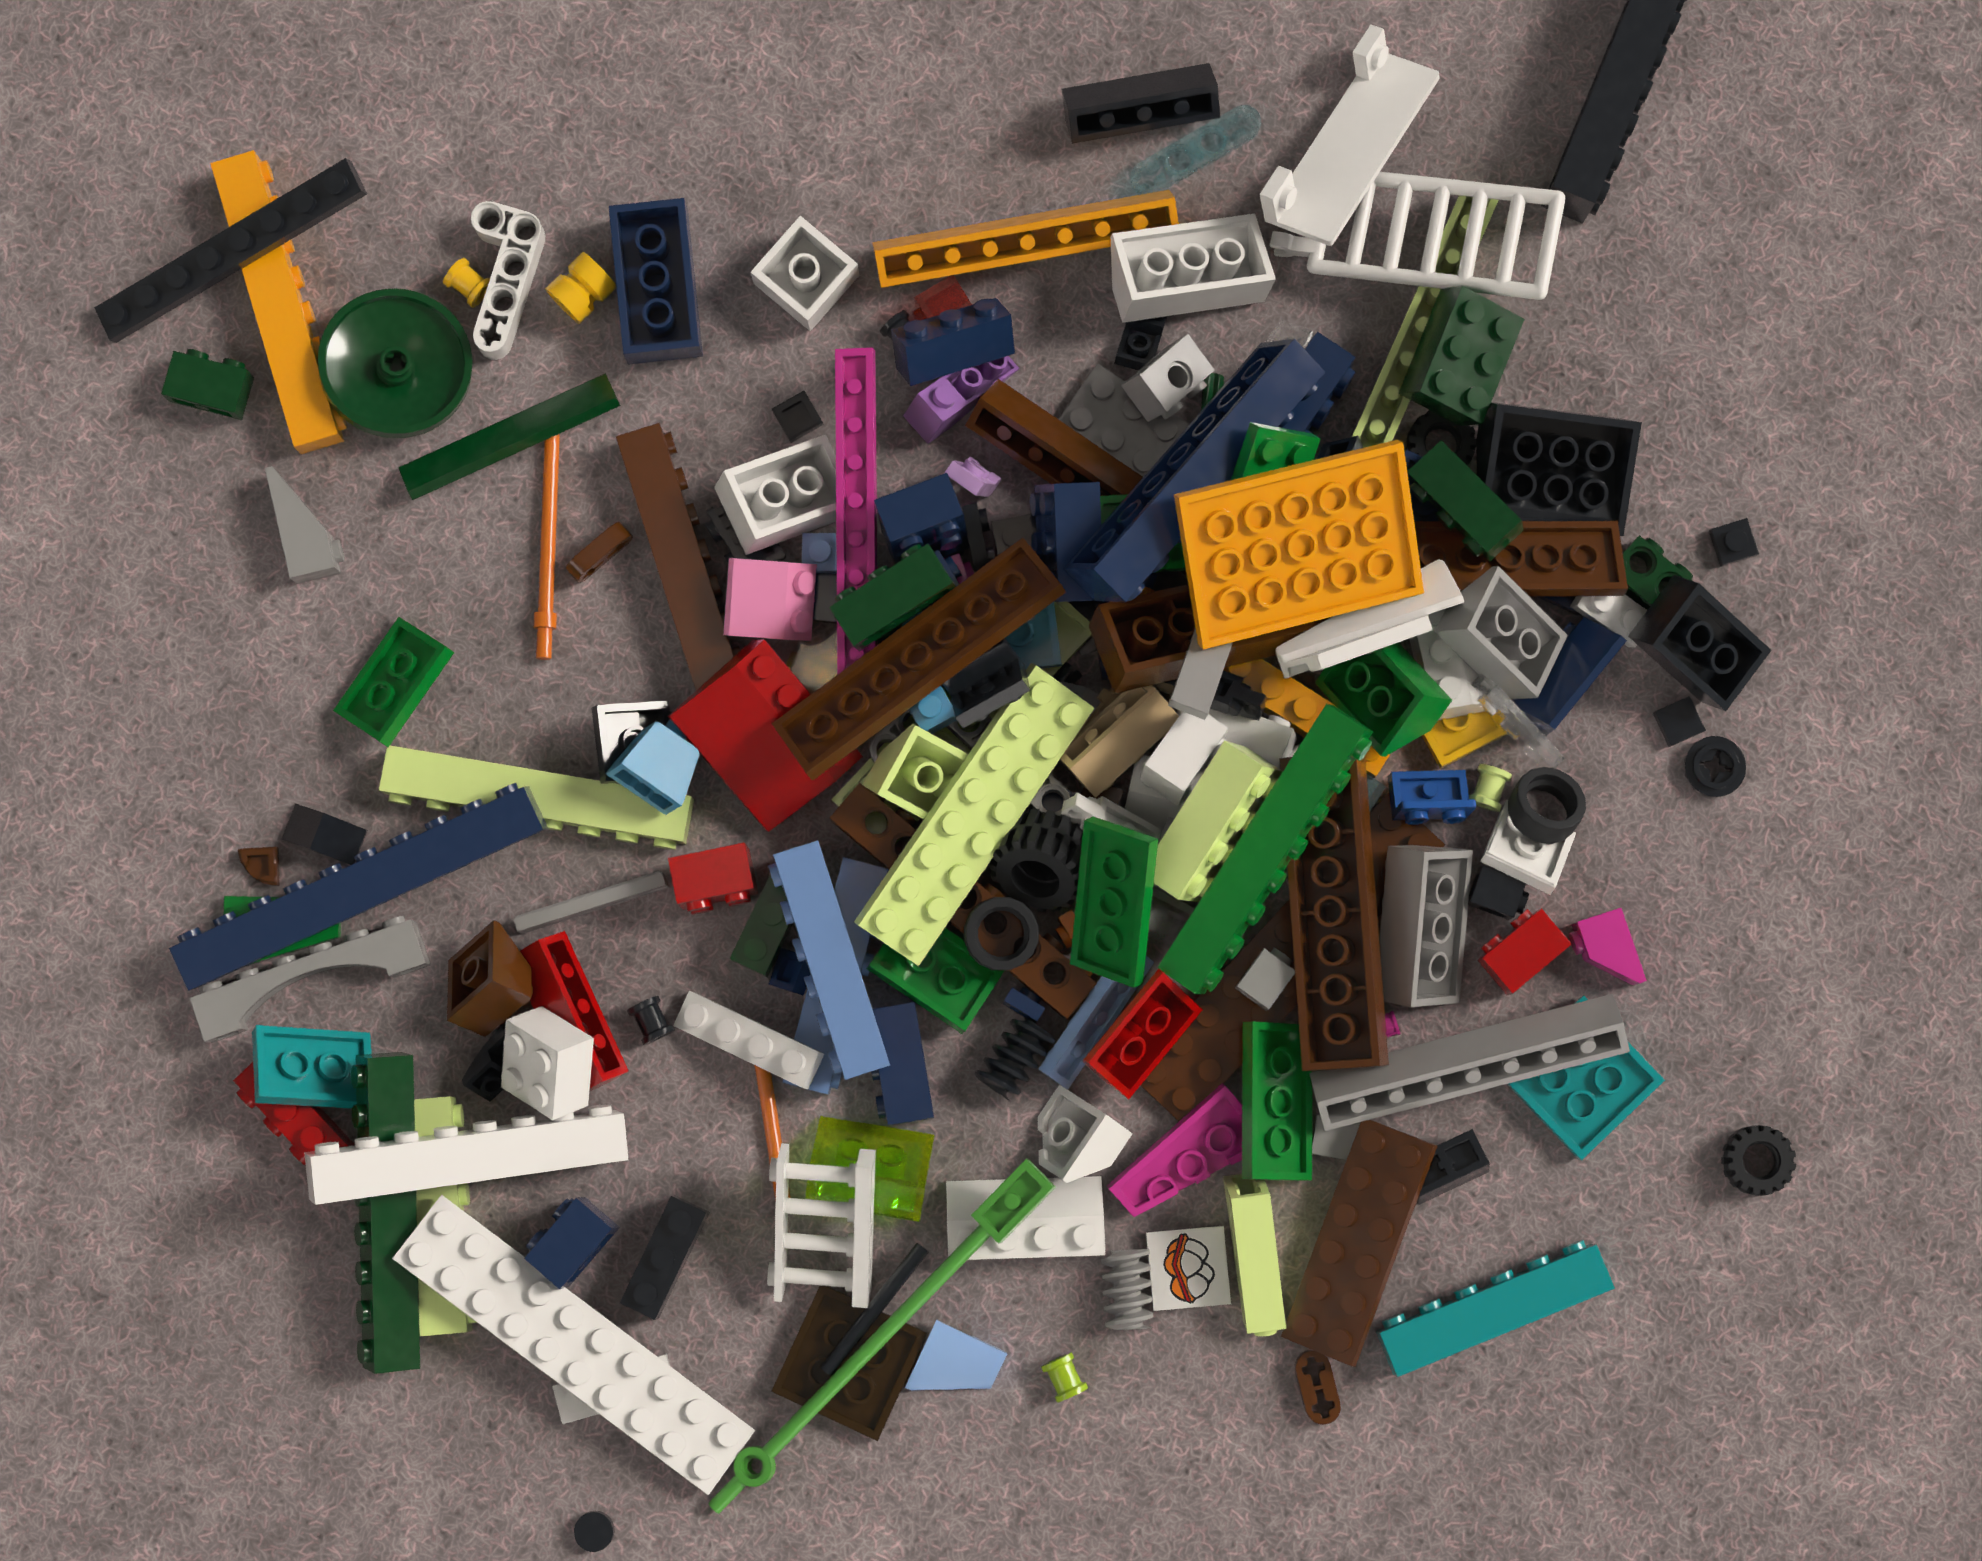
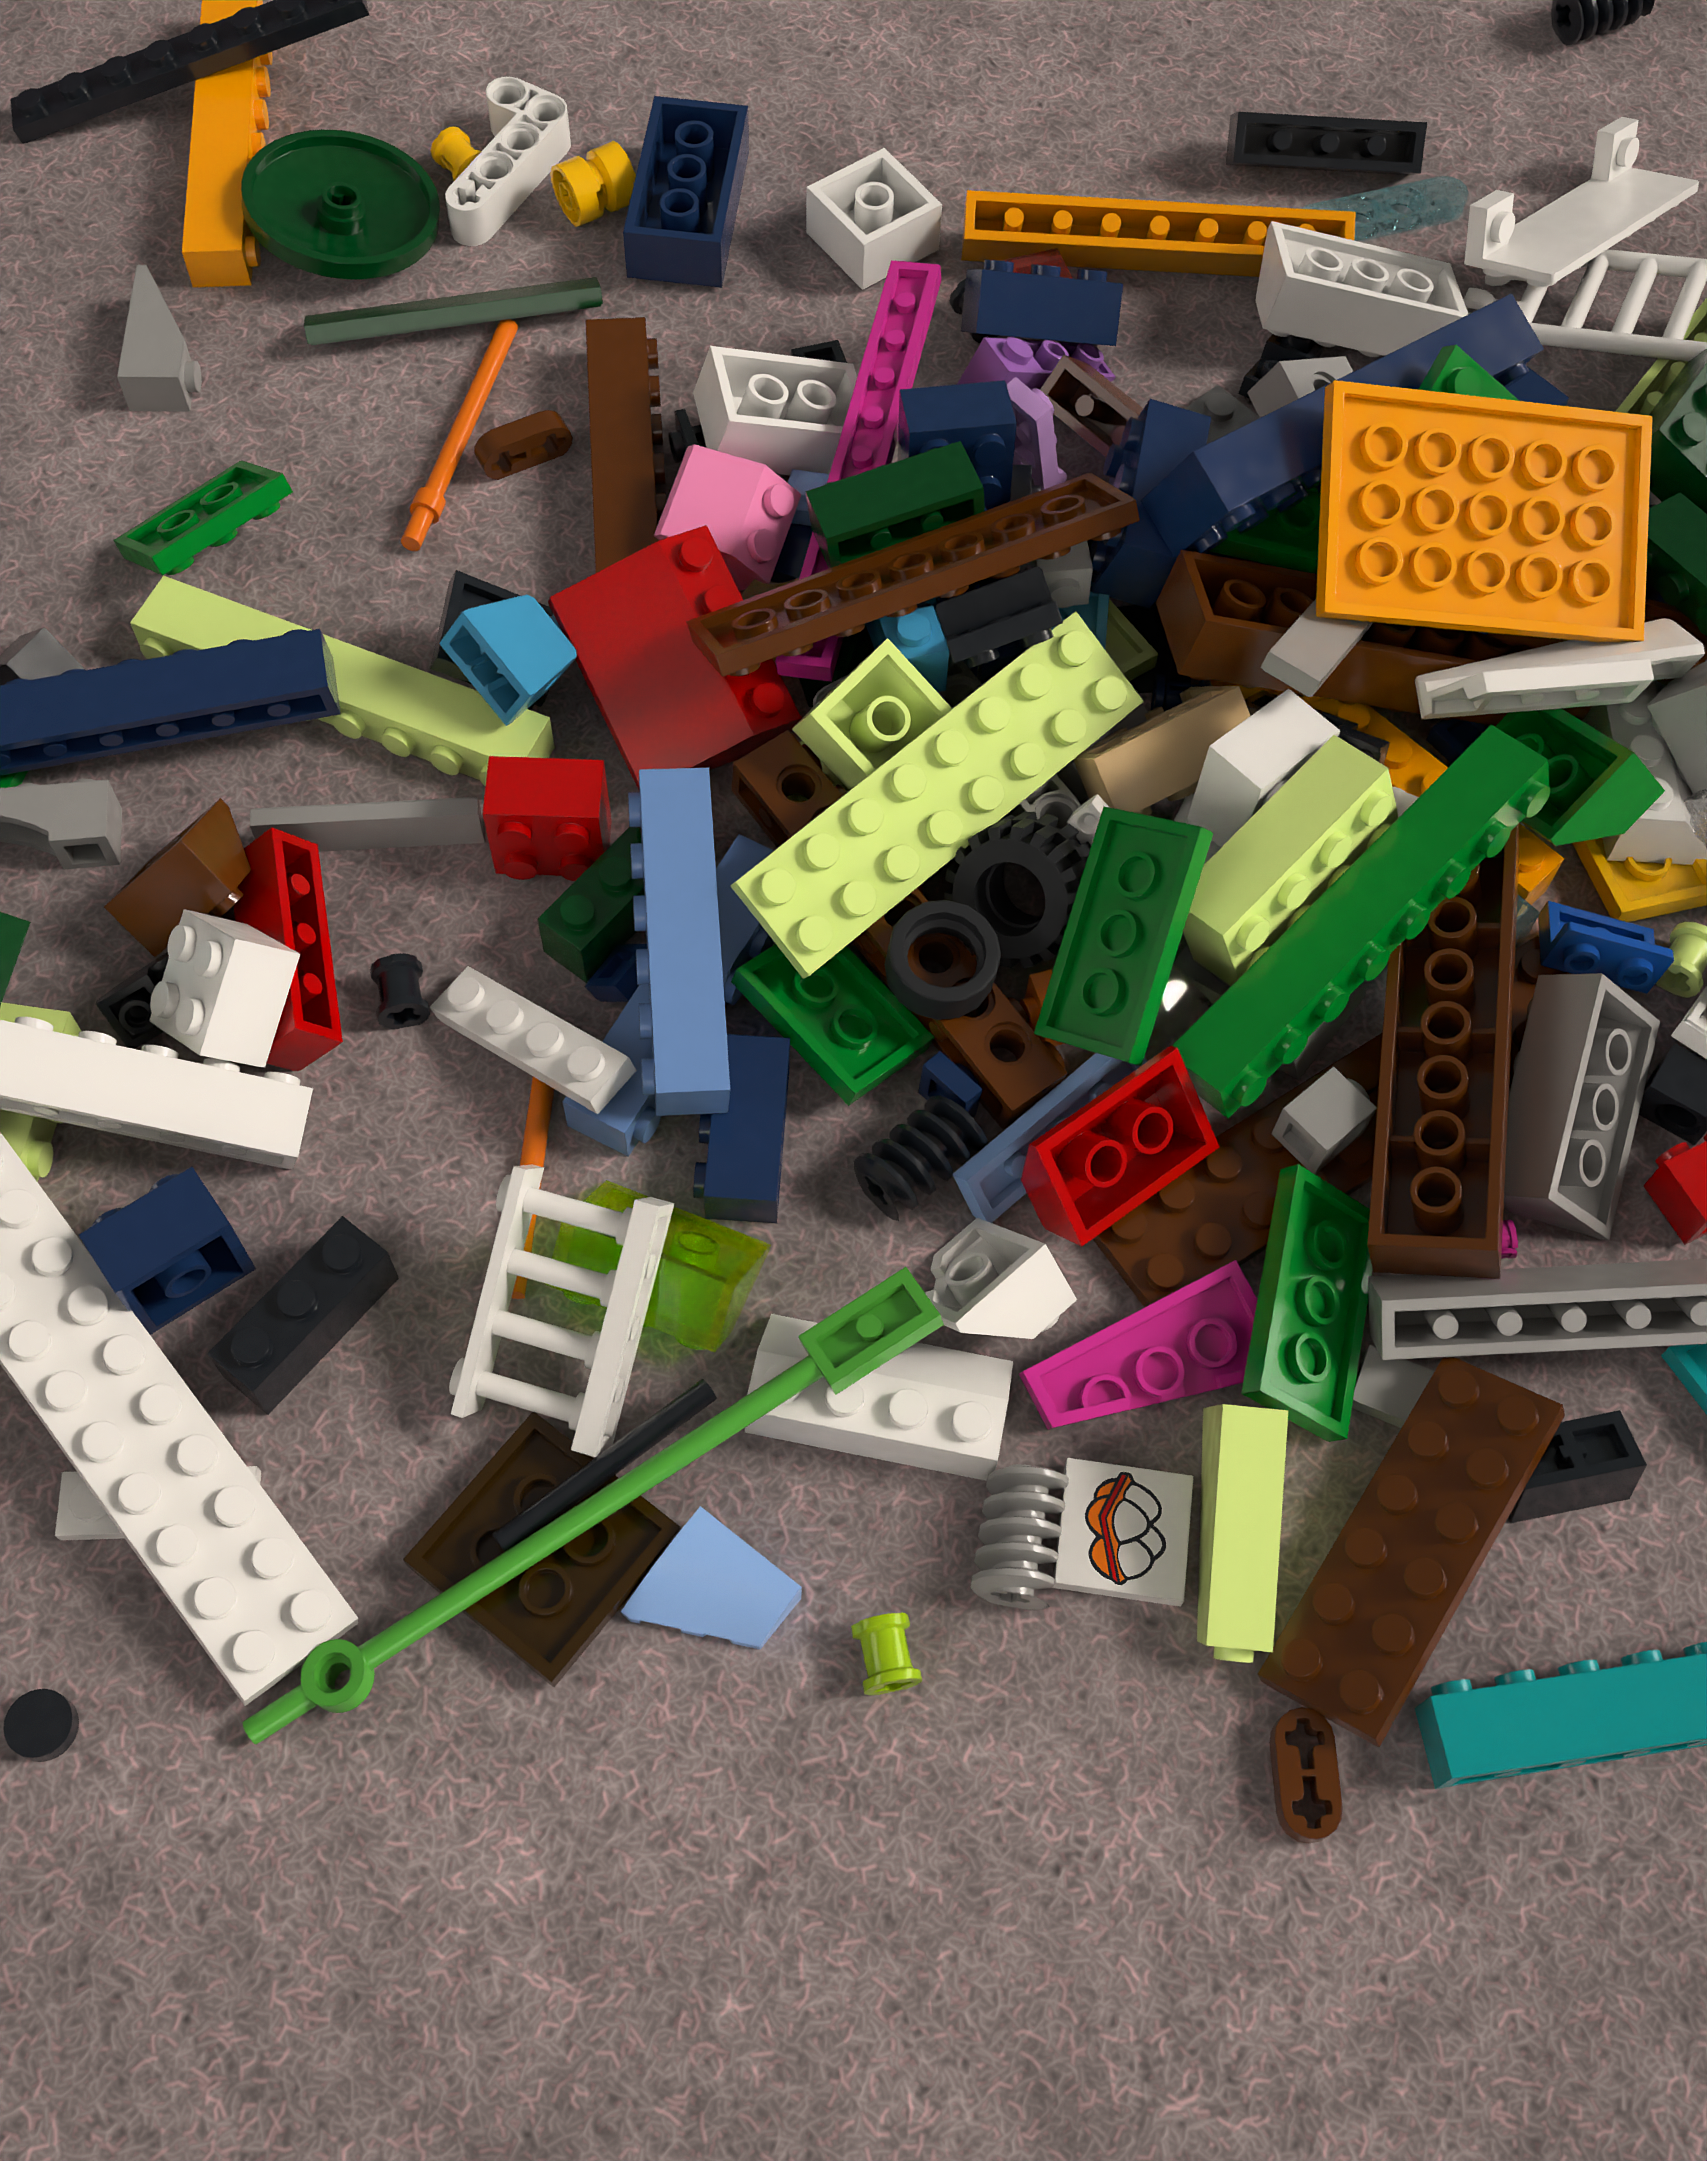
camera: 10 degrees right, 20 degrees down
(208, 384) = (107, 188): dark green brick -> none

